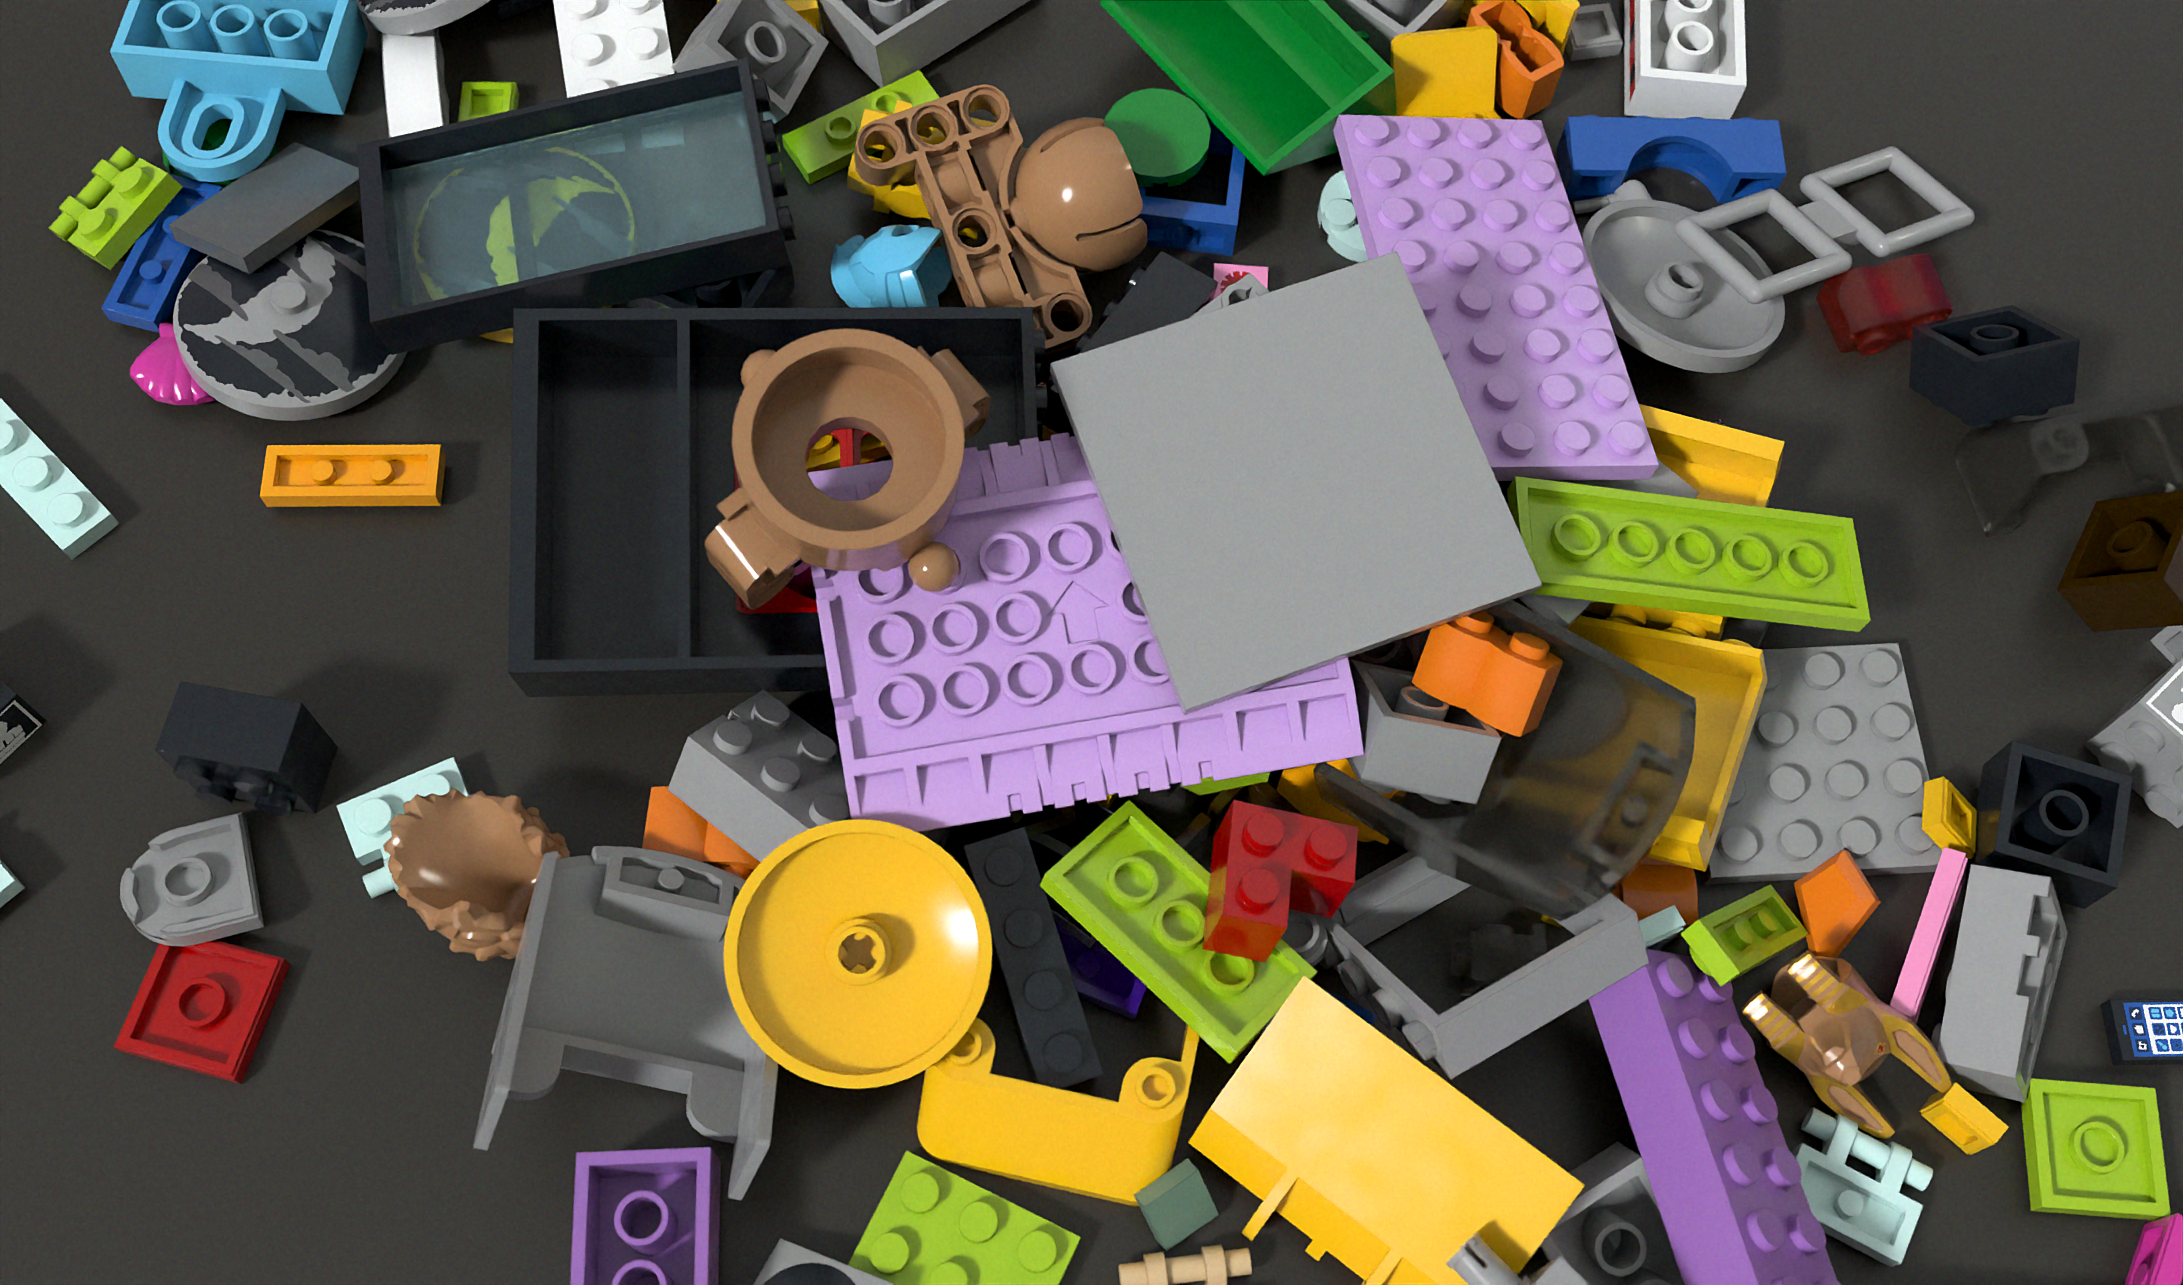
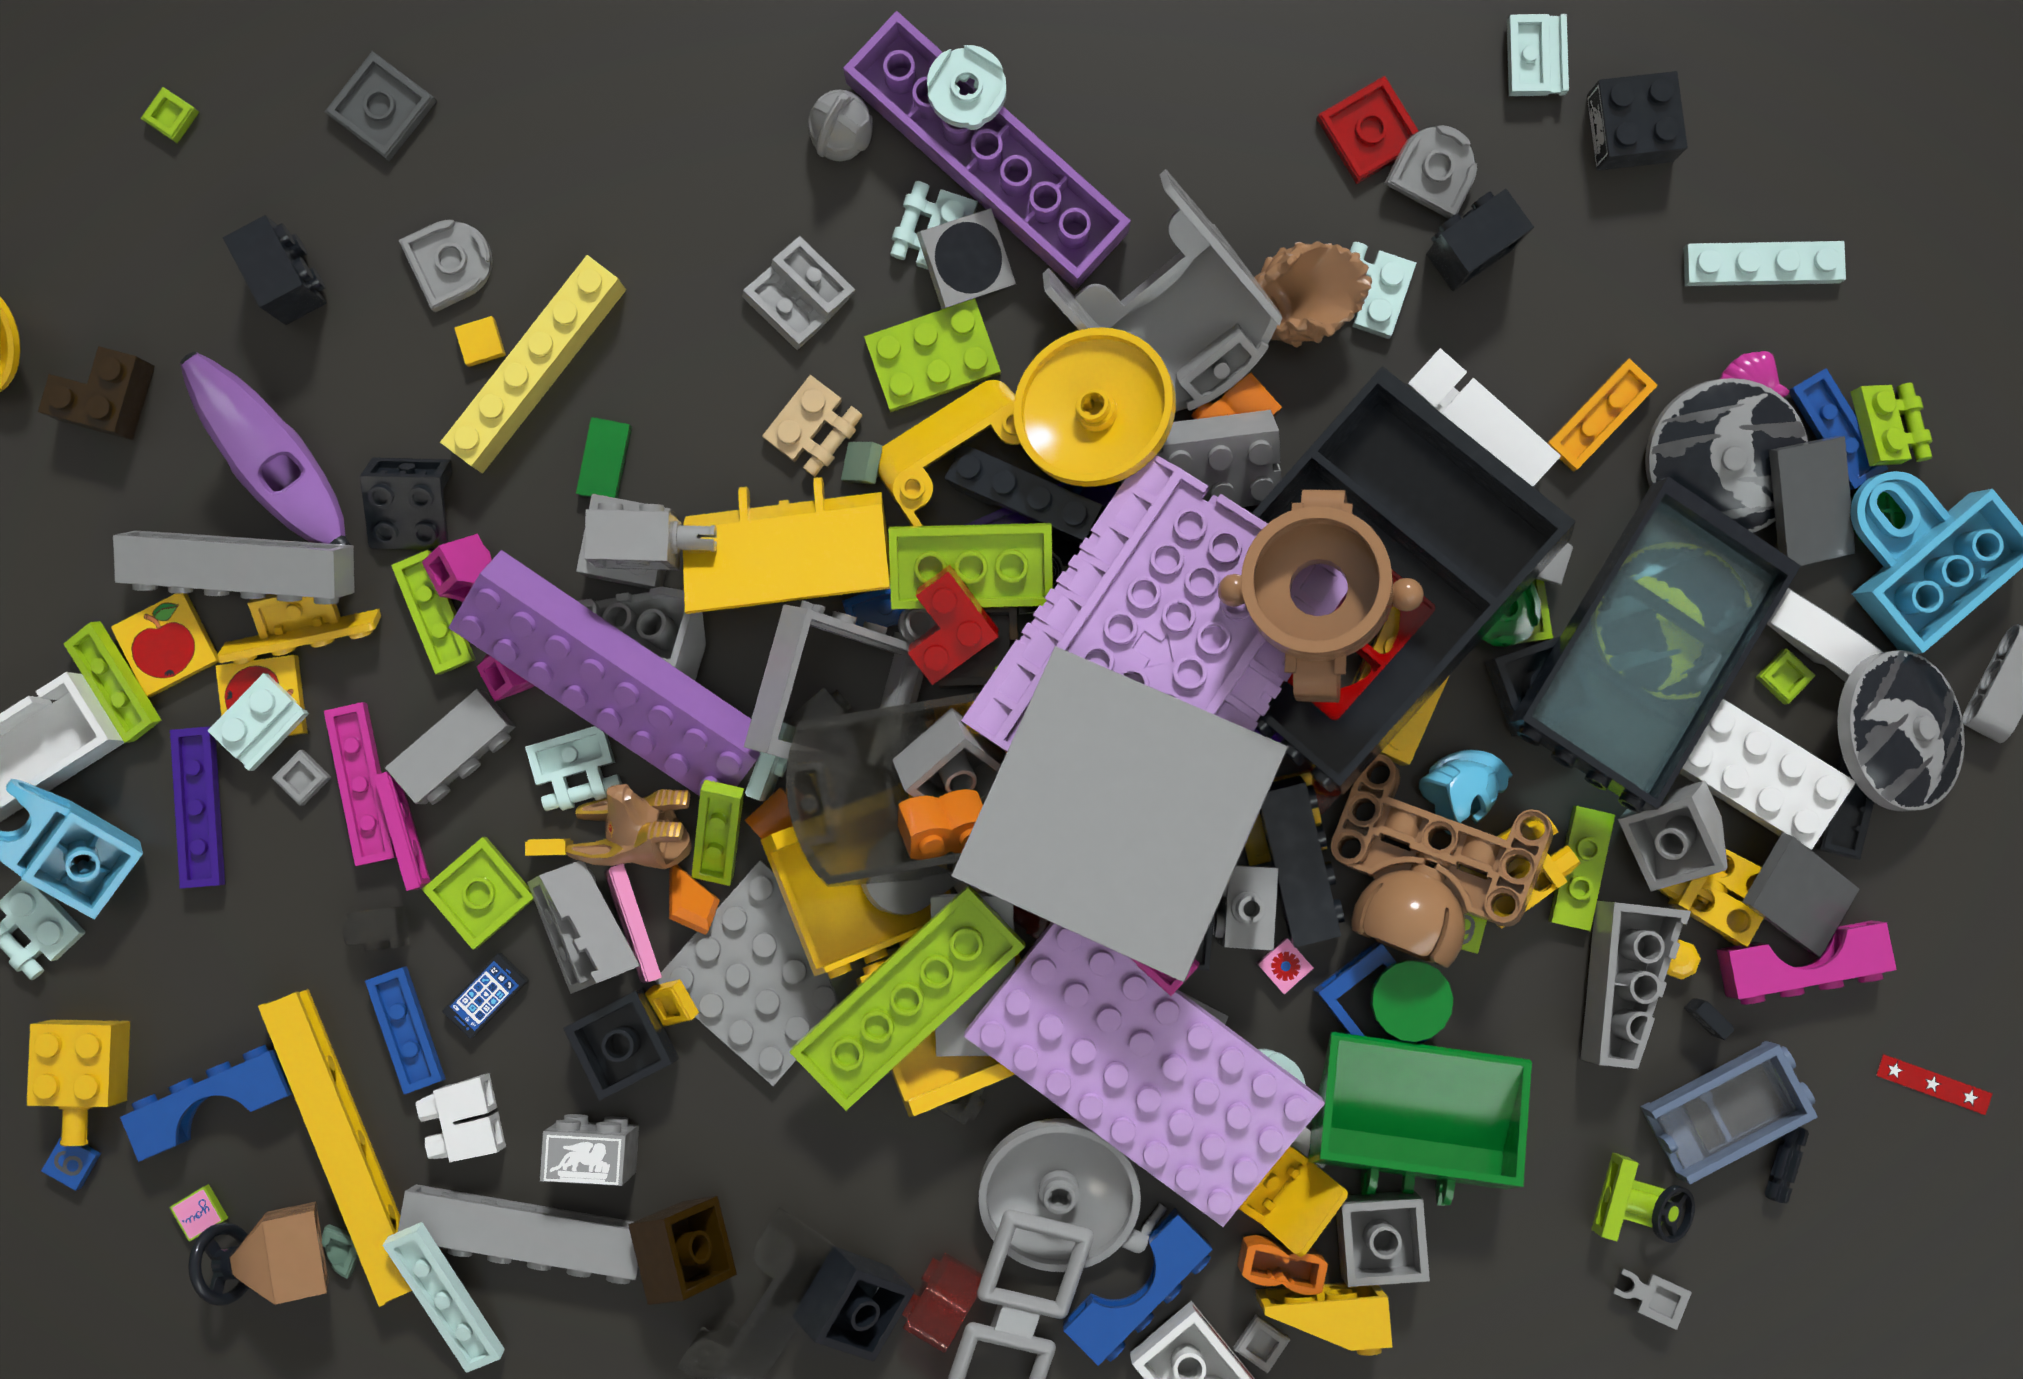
camera: 140 degrees right, 20 degrees up
(473, 564) = (1483, 418): none -> white piece

